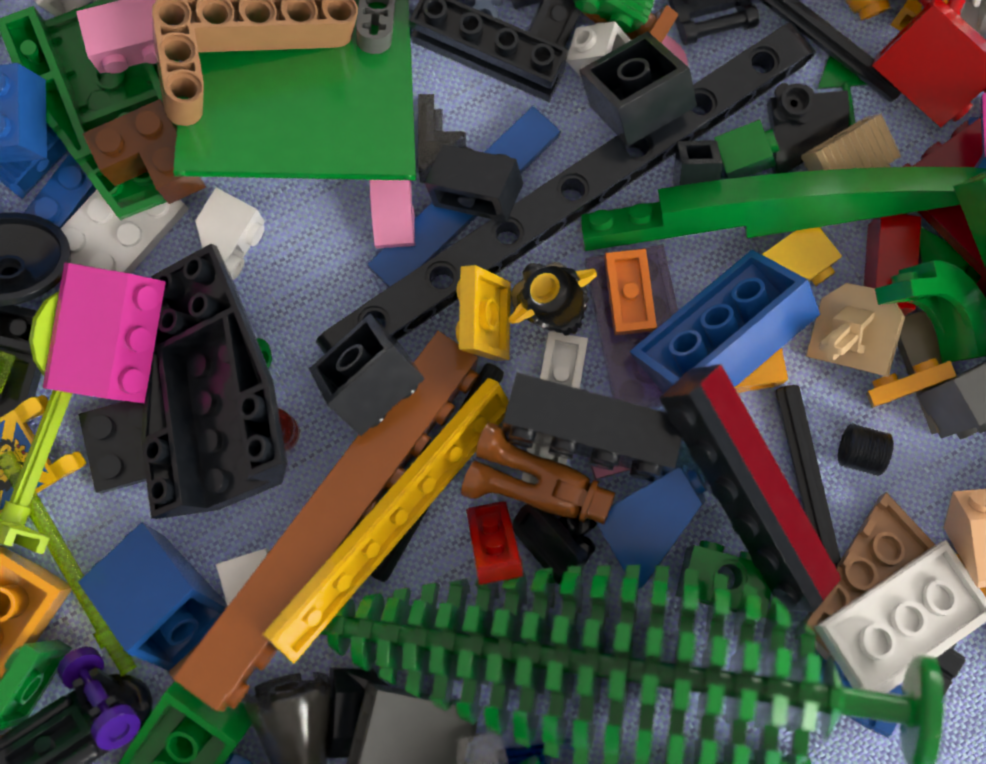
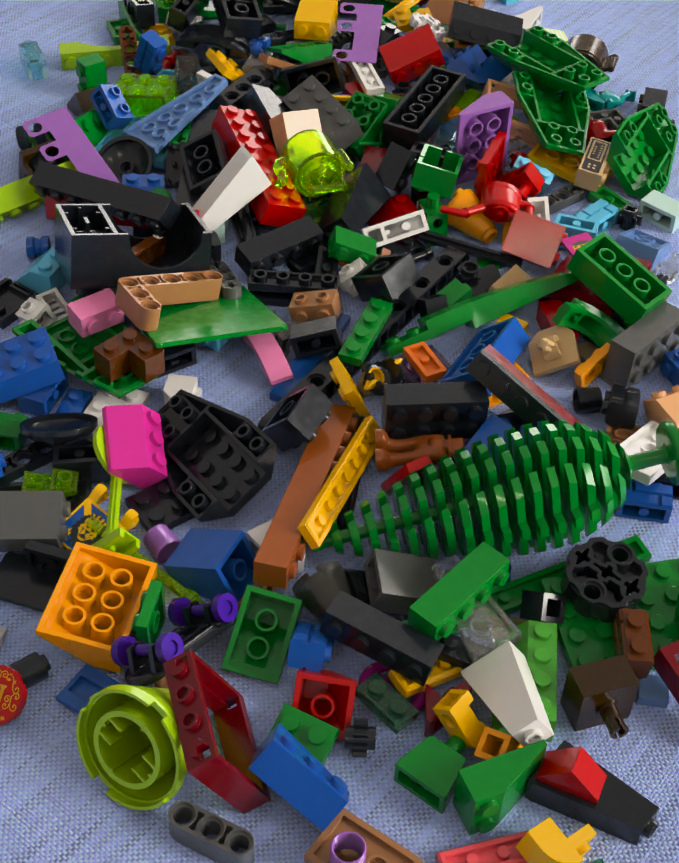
camera: 20 degrees left, 35 degrees down
(98, 525) = (160, 542): none -> medium lavender piece
(504, 104) = (315, 305): none -> medium nougat brick
(559, 196) = (365, 332): none -> green plate
(913, 491) = (621, 406): none -> black brick

